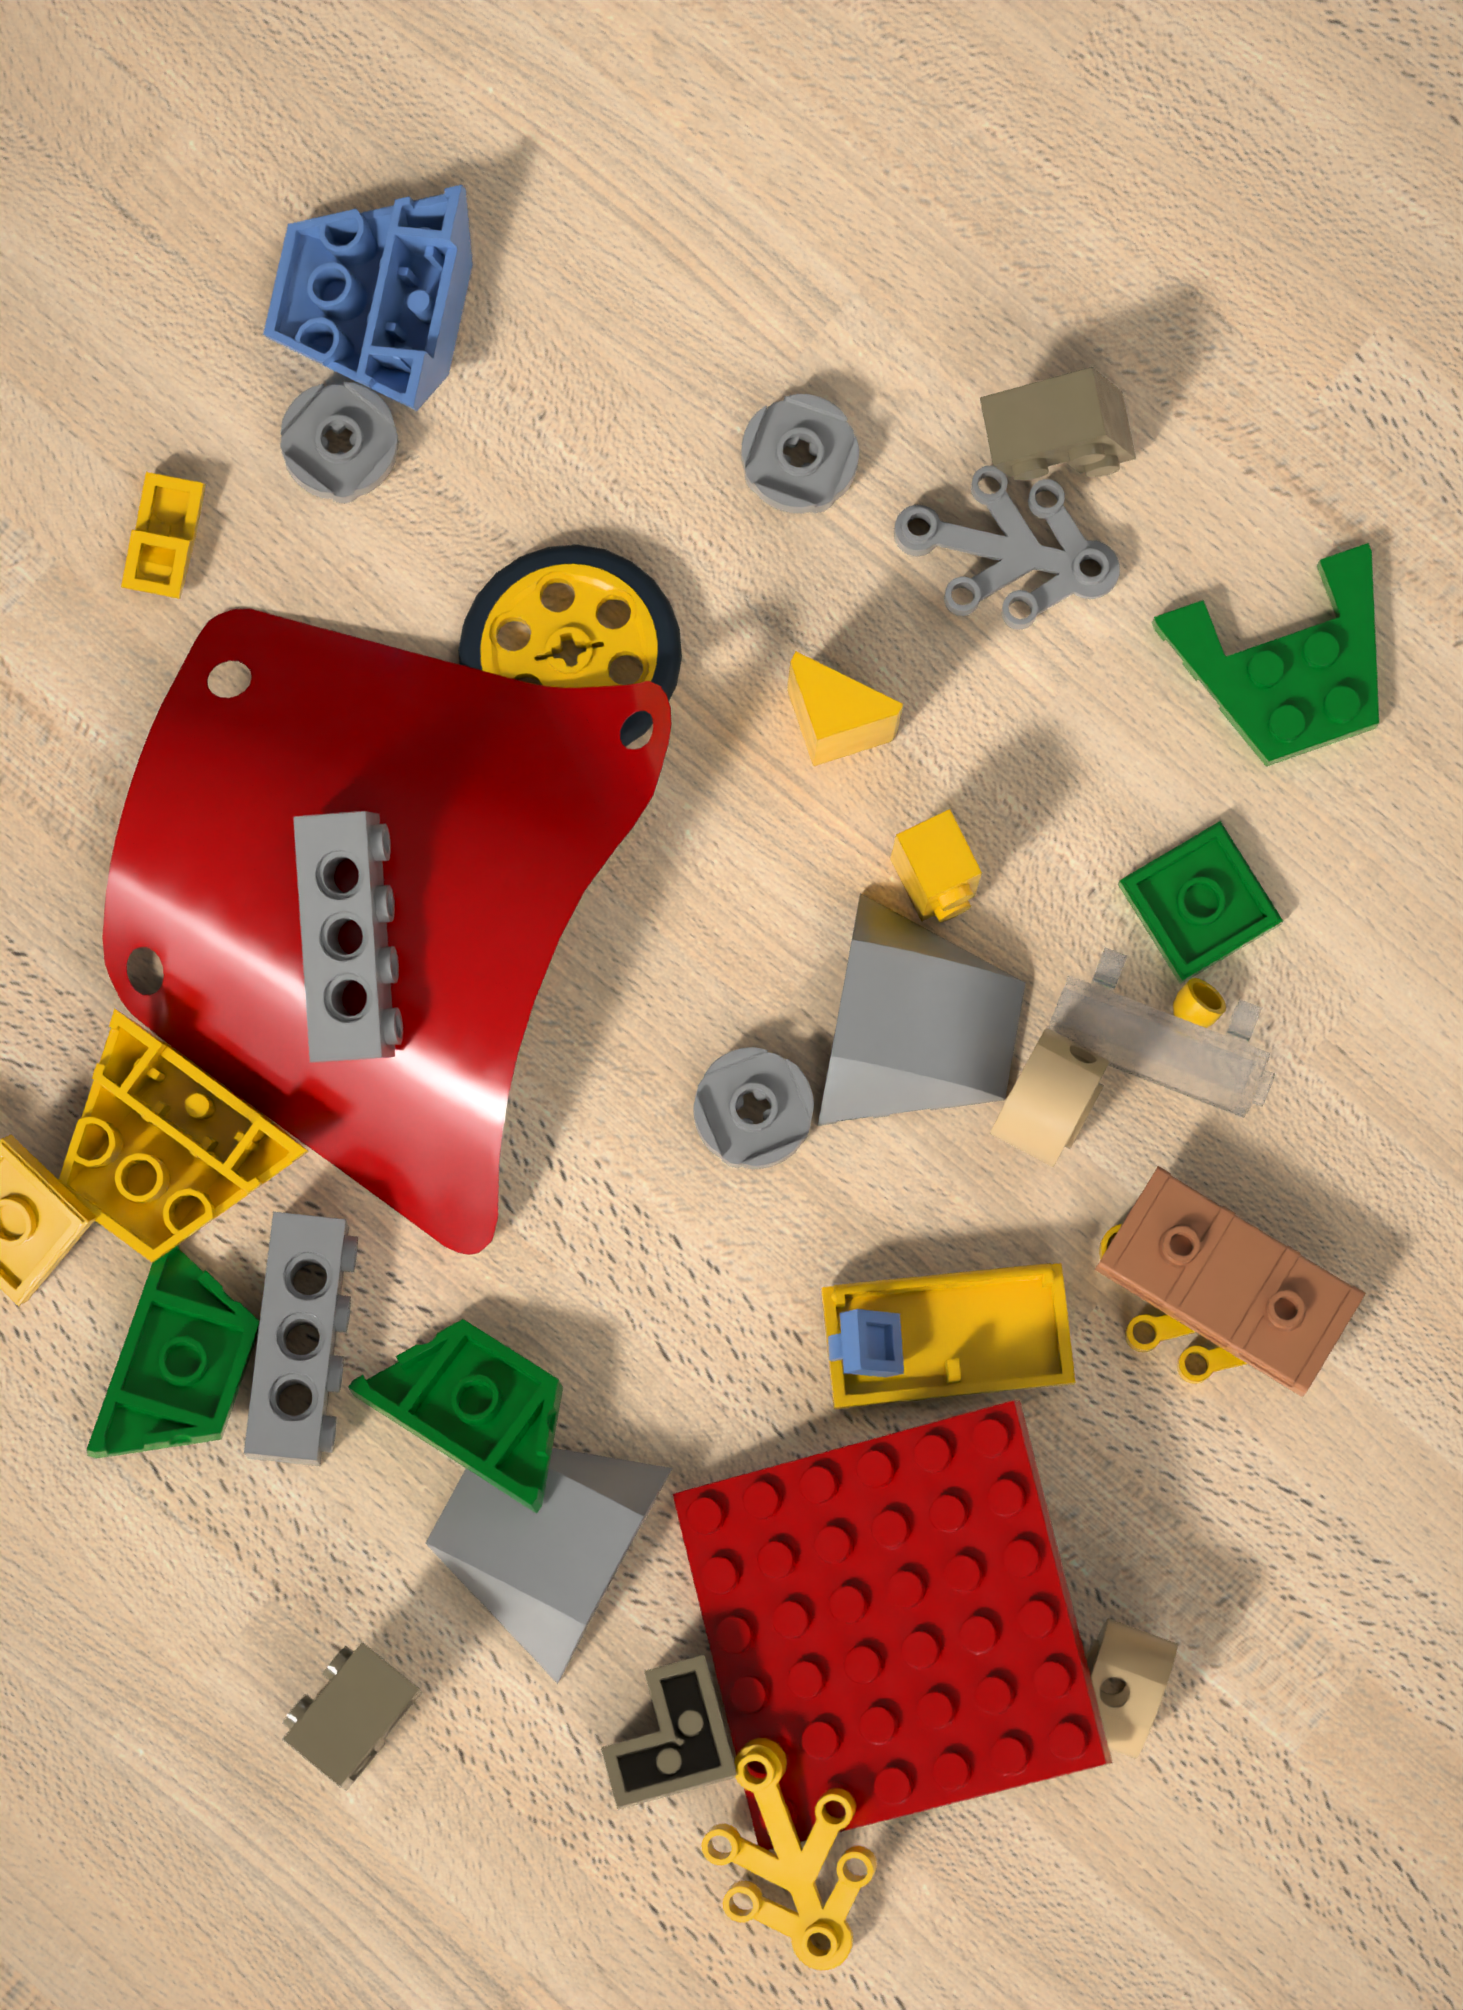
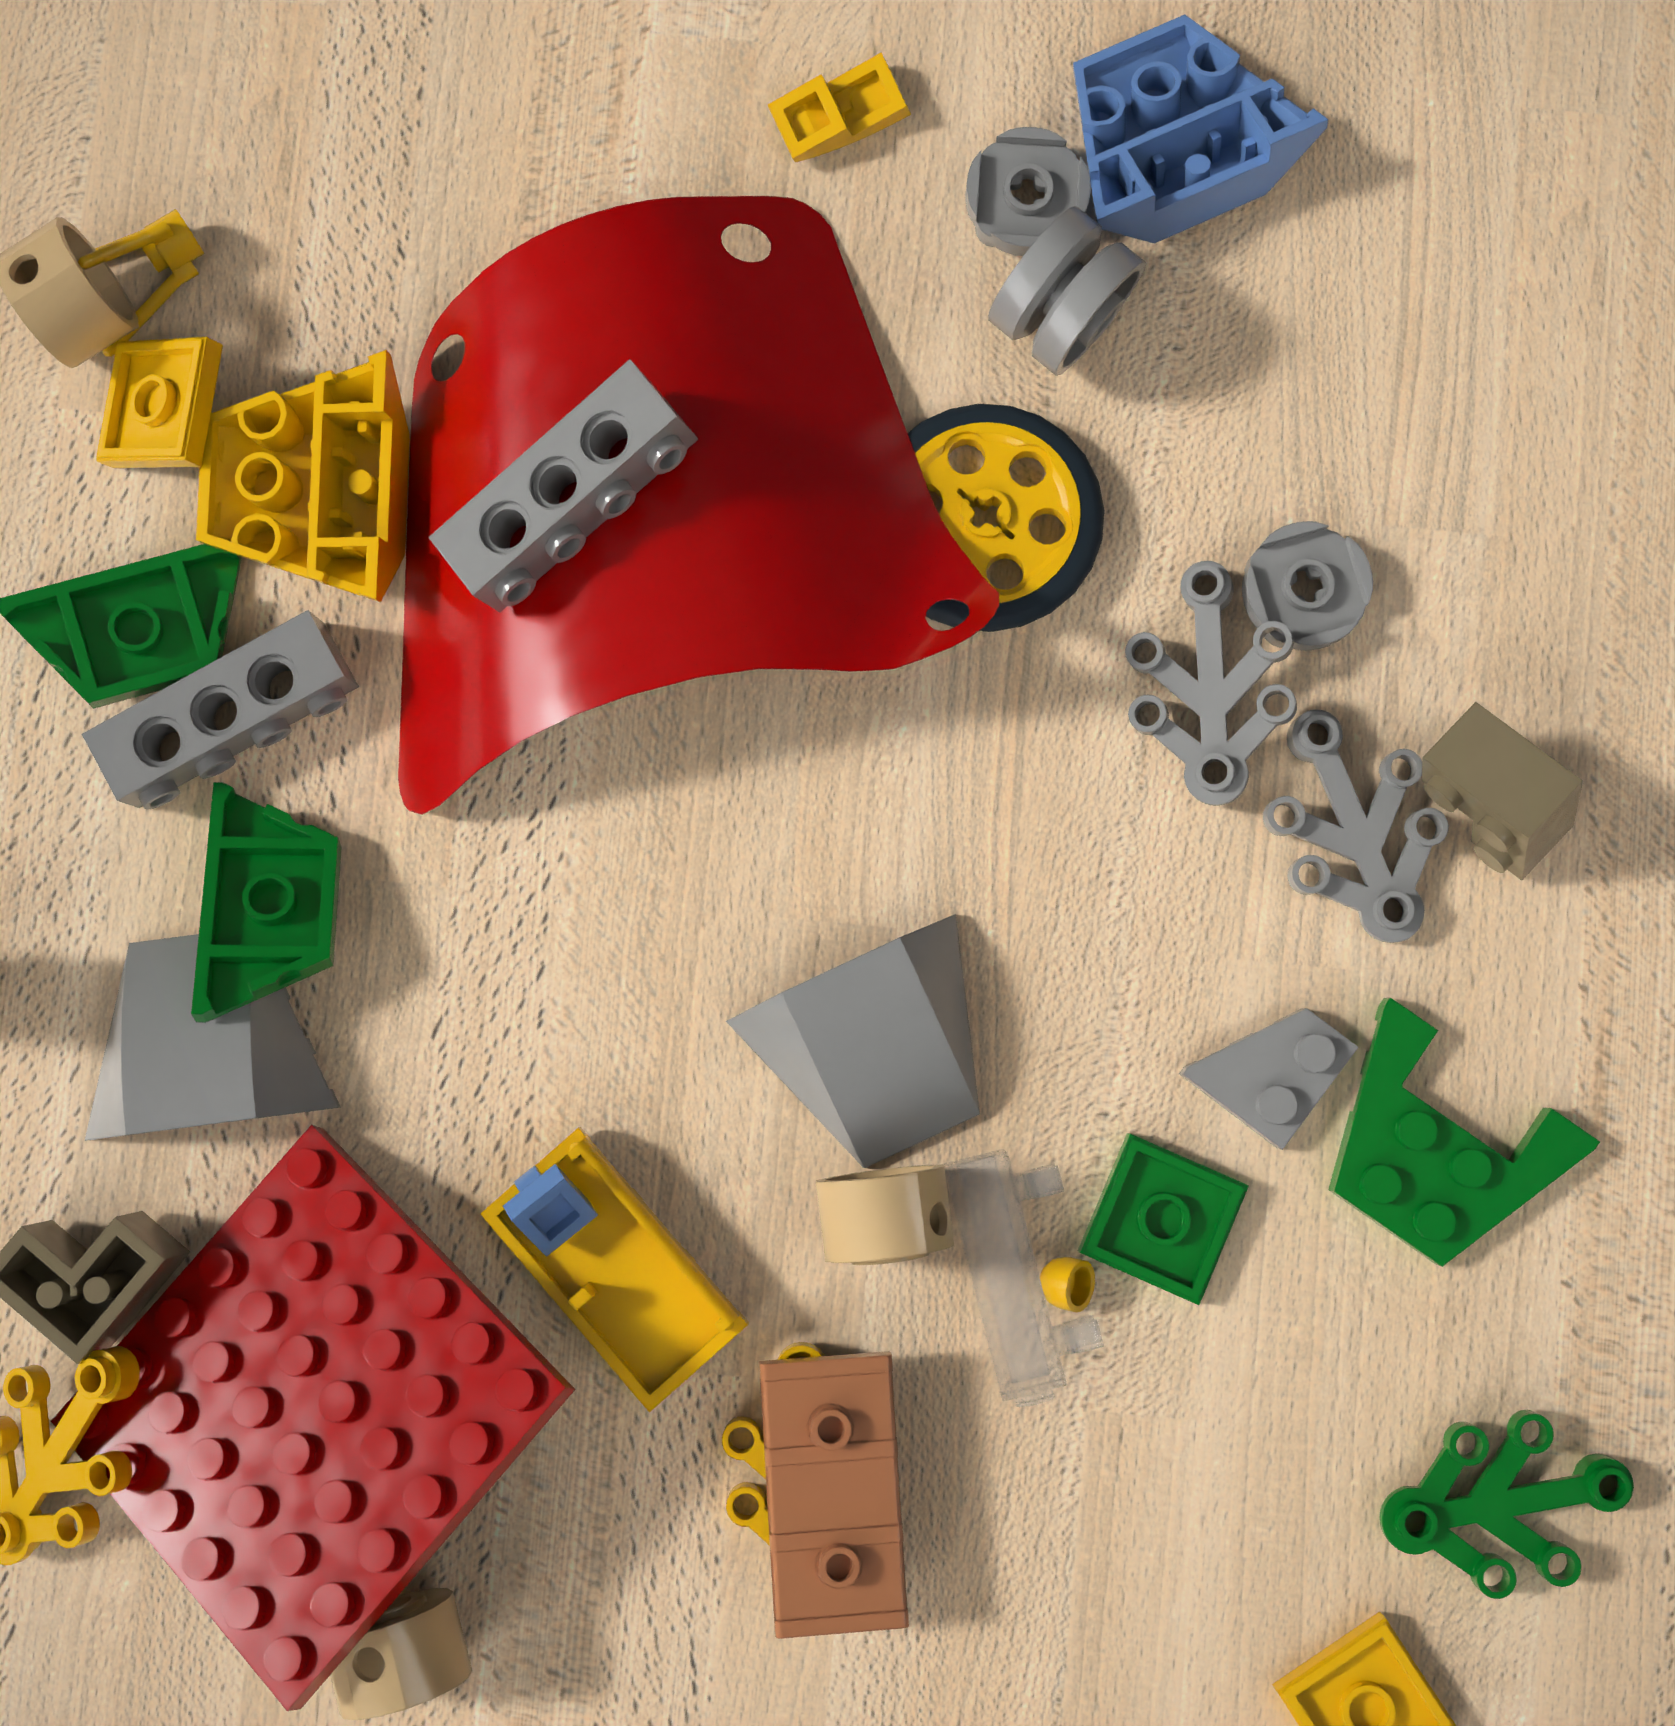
camera: 65 degrees right, 5 degrees up
(449, 468) = (1066, 290): none -> light grey wheel
(767, 1077) = (662, 965): light grey plate -> none
(832, 582) = (1212, 694): none -> light grey plant
(838, 712) = (1097, 781): yellow slope -> none
(936, 867) = (1020, 966): yellow brick -> none
(1150, 743) = (1274, 1074): none -> light grey wing

